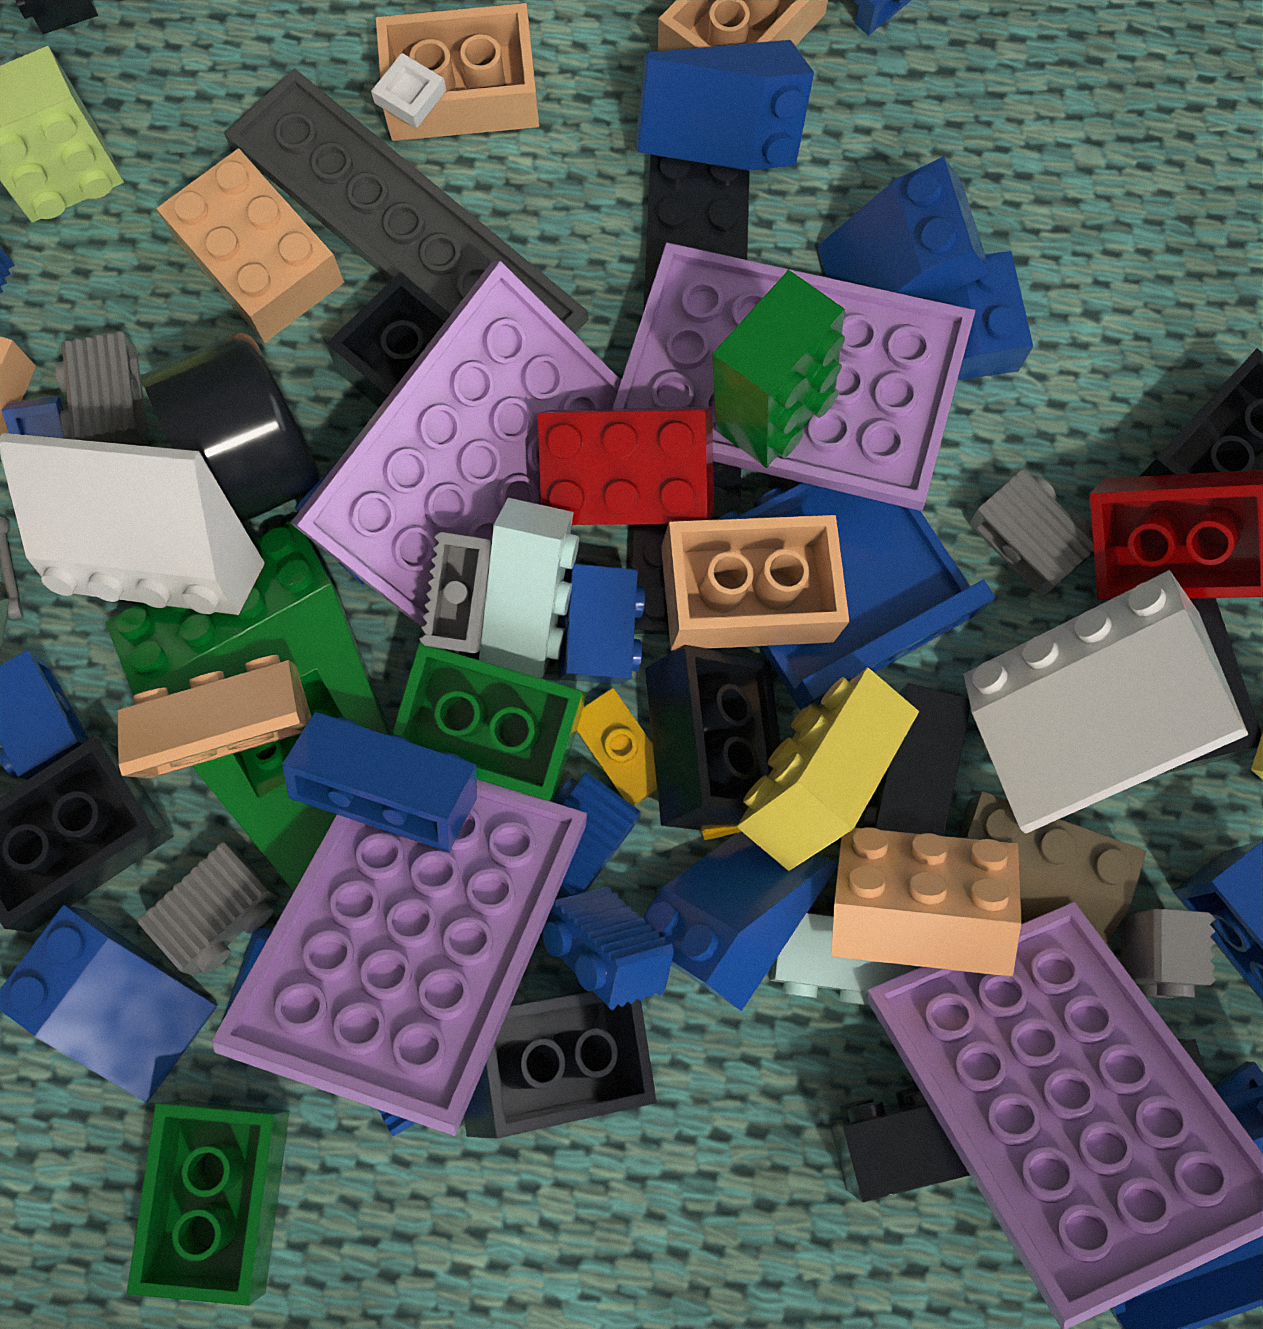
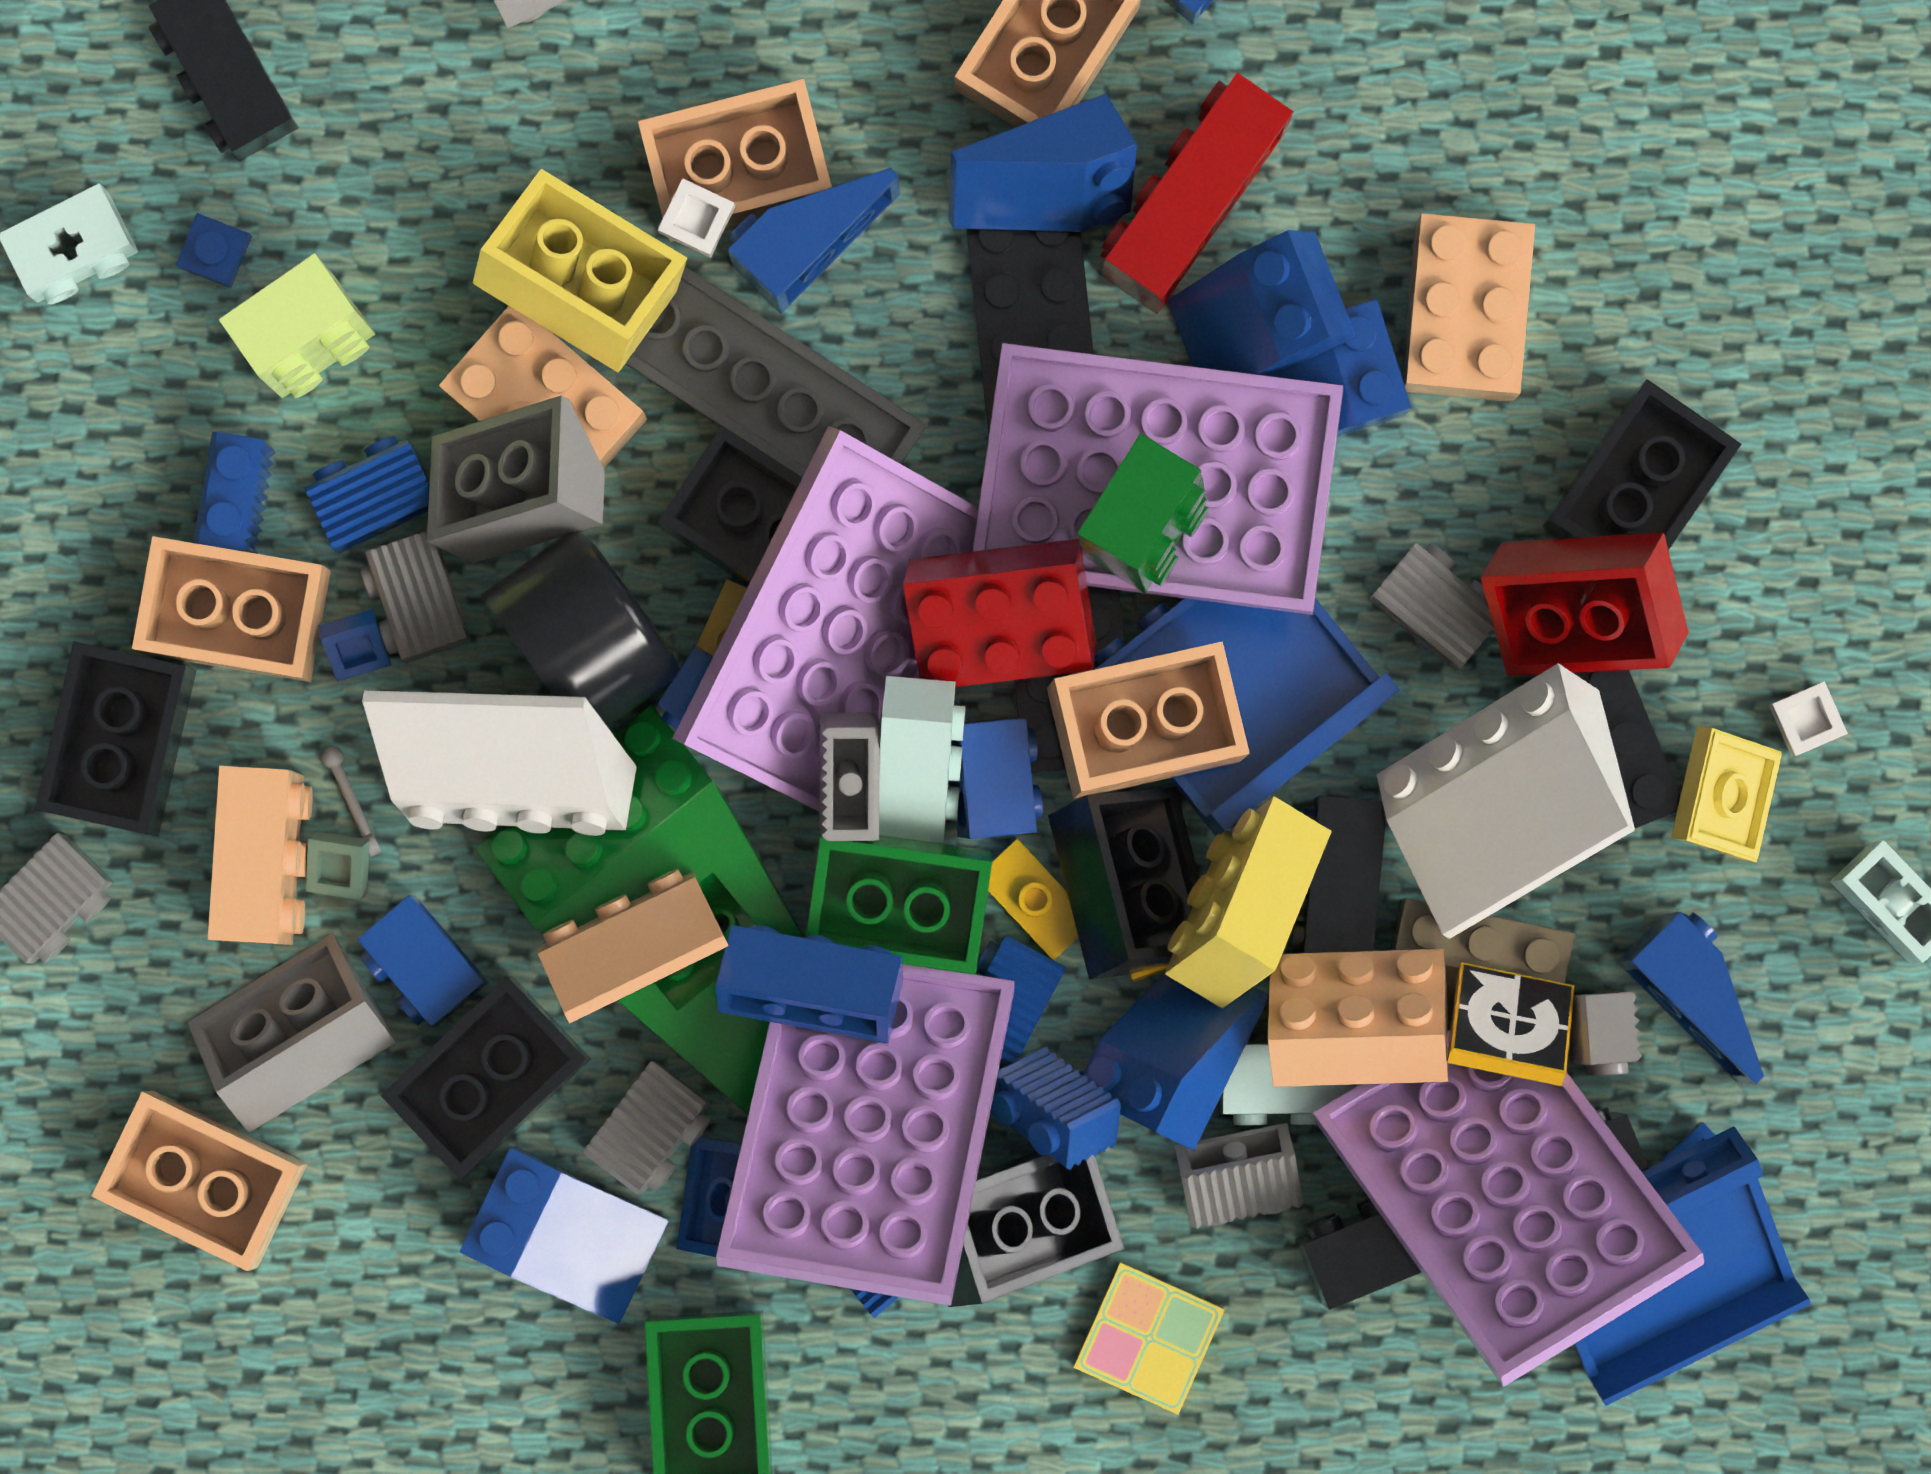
camera: 10 degrees left, 10 degrees up
(83, 302) = (371, 494): none -> blue brick
(202, 290) = (513, 482): none -> light grey slope
(296, 122) = (579, 270): none -> light yellow brick
(512, 131) = (802, 237): none -> blue slope
(669, 1200) = (1148, 1338): none -> tile
(783, 1045) = (1239, 1176): none -> light grey brick
(857, 144) = (1196, 193): none -> red brick
(1082, 929) = (1511, 1024): none -> tile
(1090, 278) = (1468, 307): none -> light nougat brick

